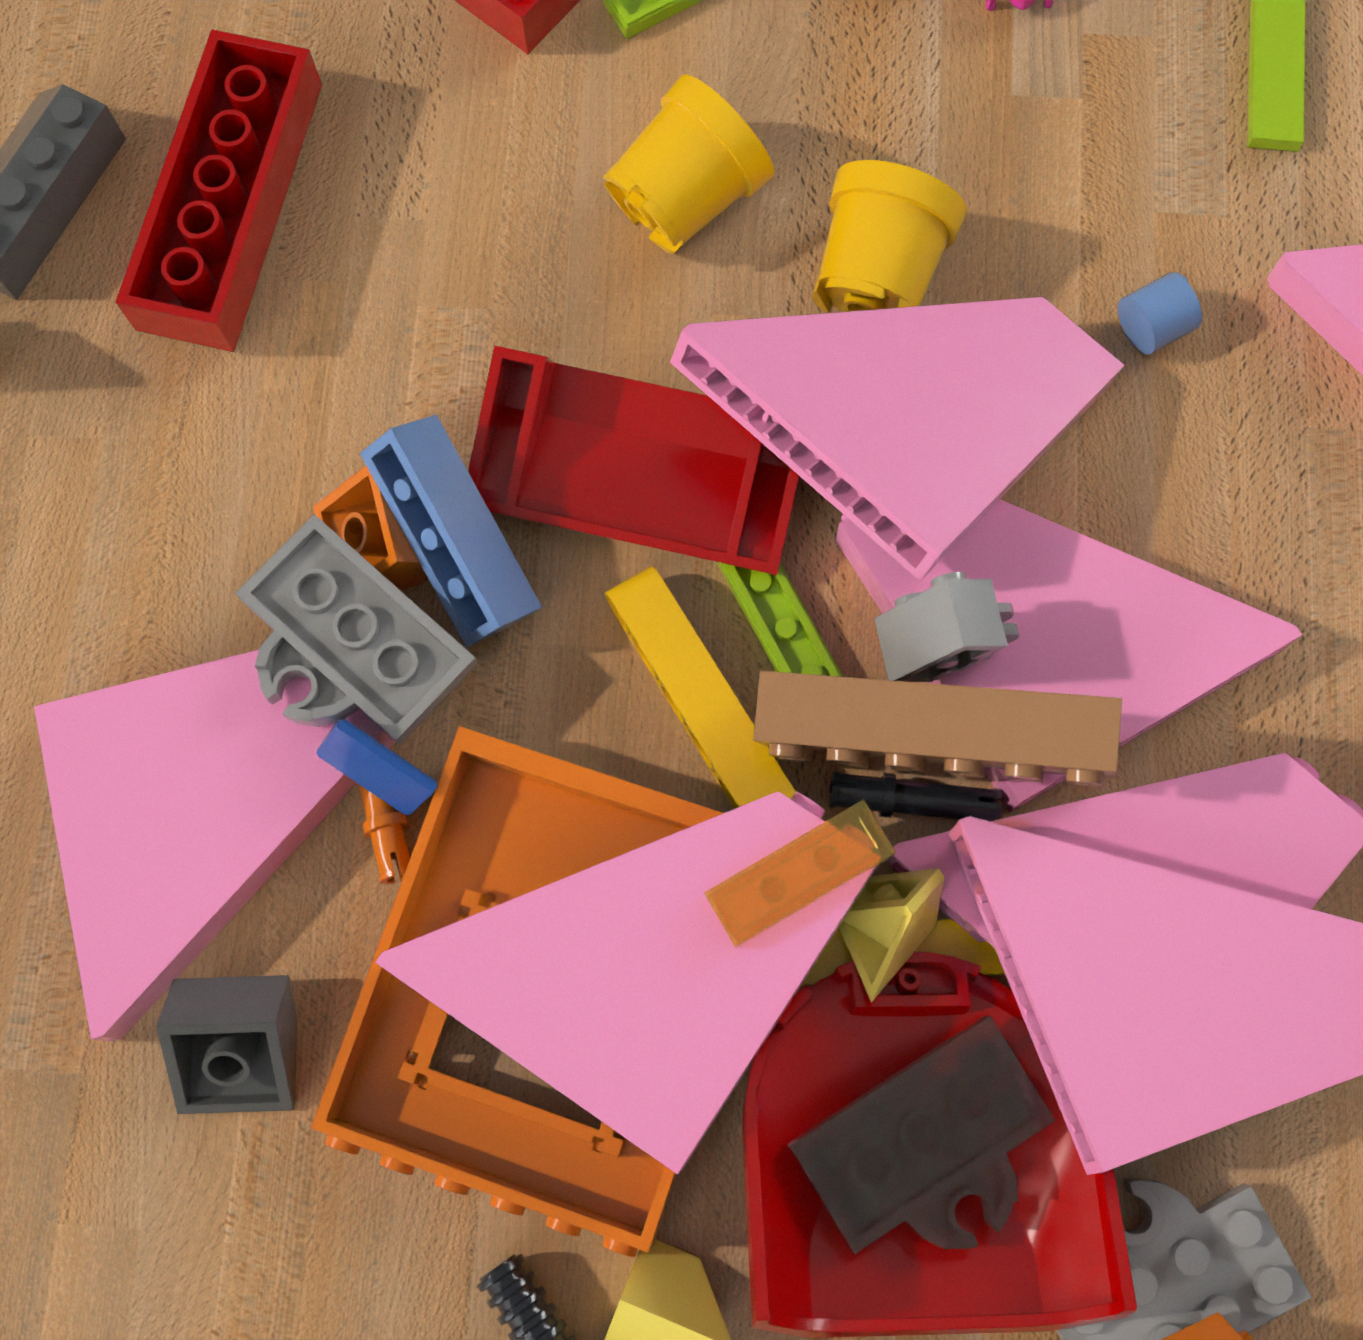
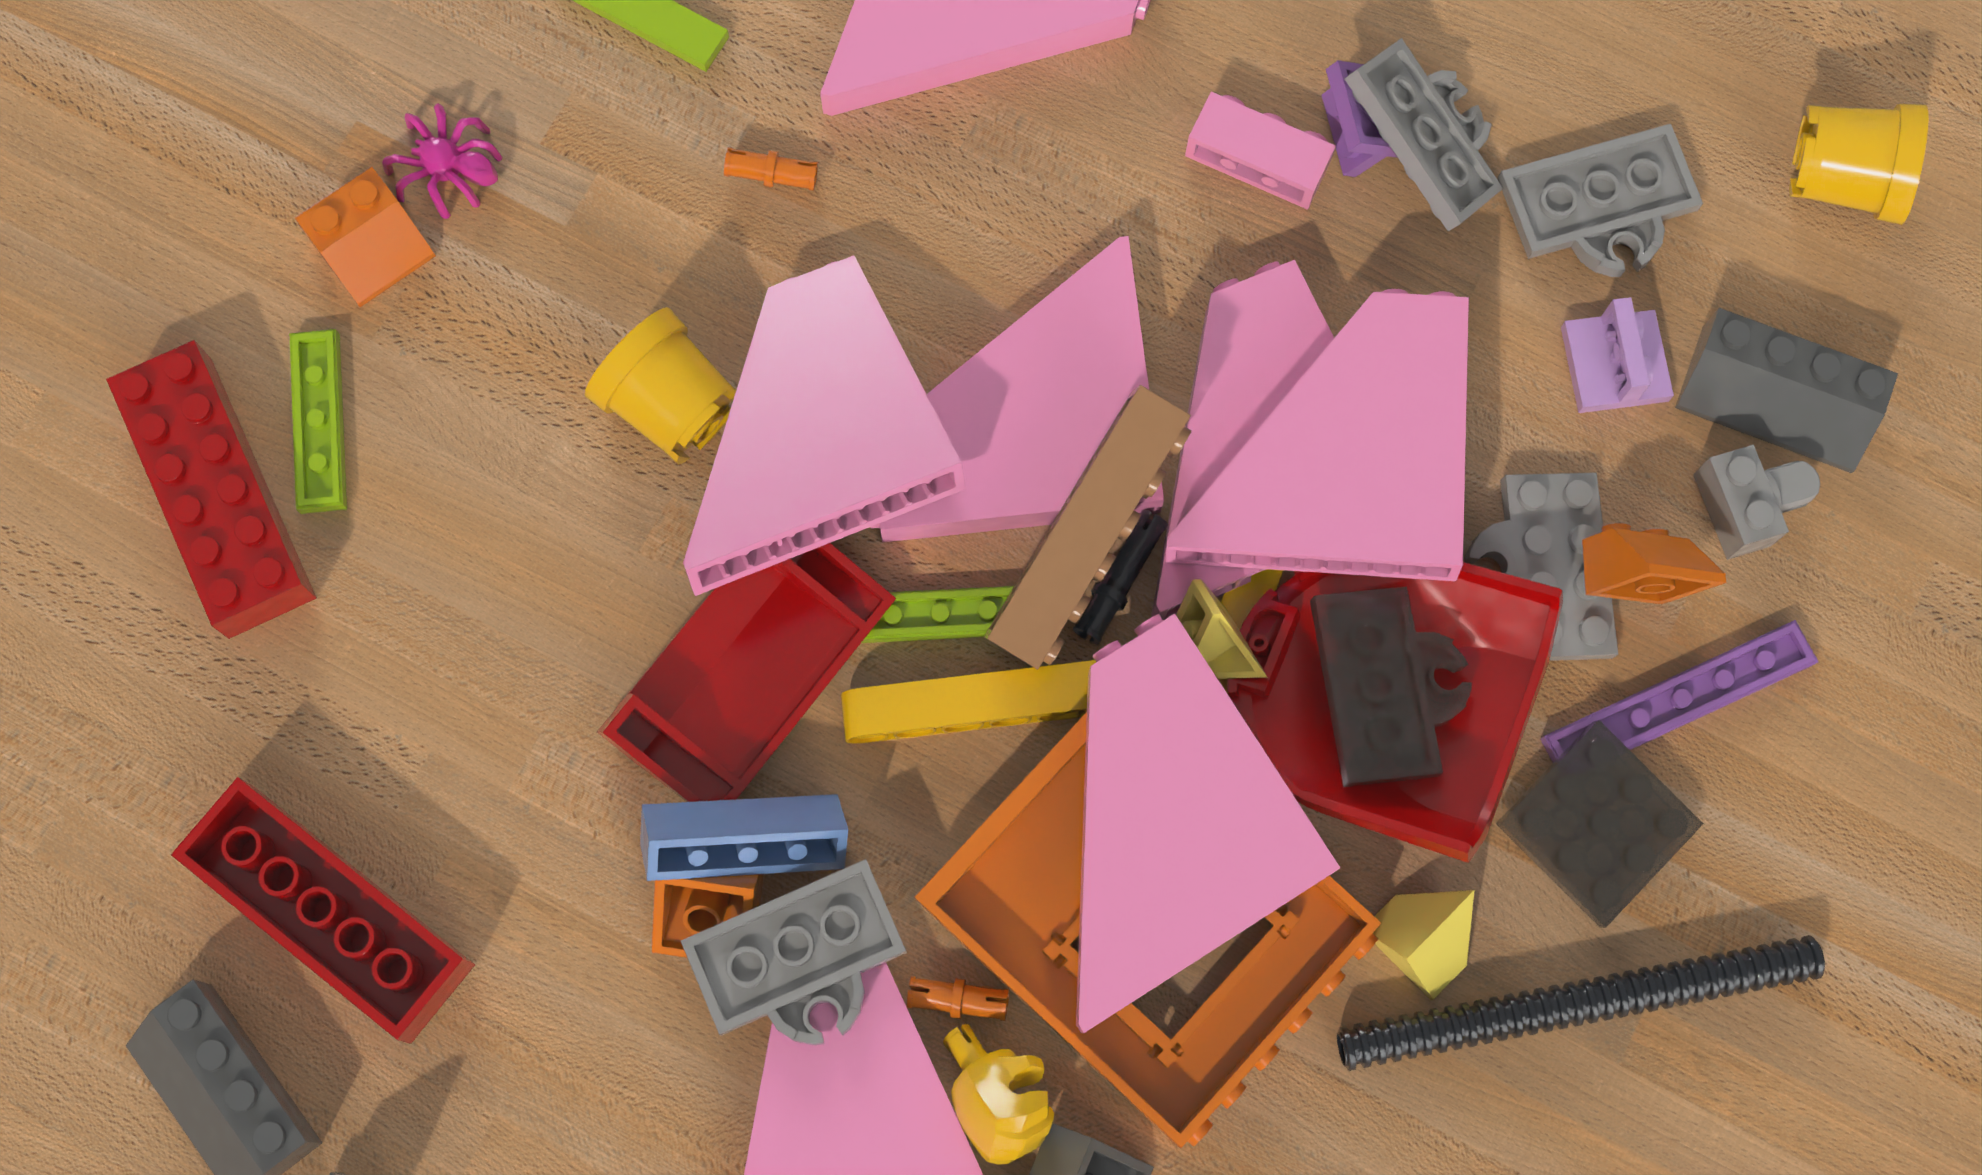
camera: 70 degrees left, 0 degrees up
(254, 919) = (991, 1115): none -> yellow piece
(375, 767) = (916, 979): blue slope -> none
(688, 165) = (513, 509): yellow piece -> none
(799, 873) = (1162, 677): clear yellow tile -> none
(944, 629) = (1014, 491): light grey brick -> none
(1160, 313) = (819, 207): medium blue piece -> none
(1175, 246) = (770, 168): none -> orange pin

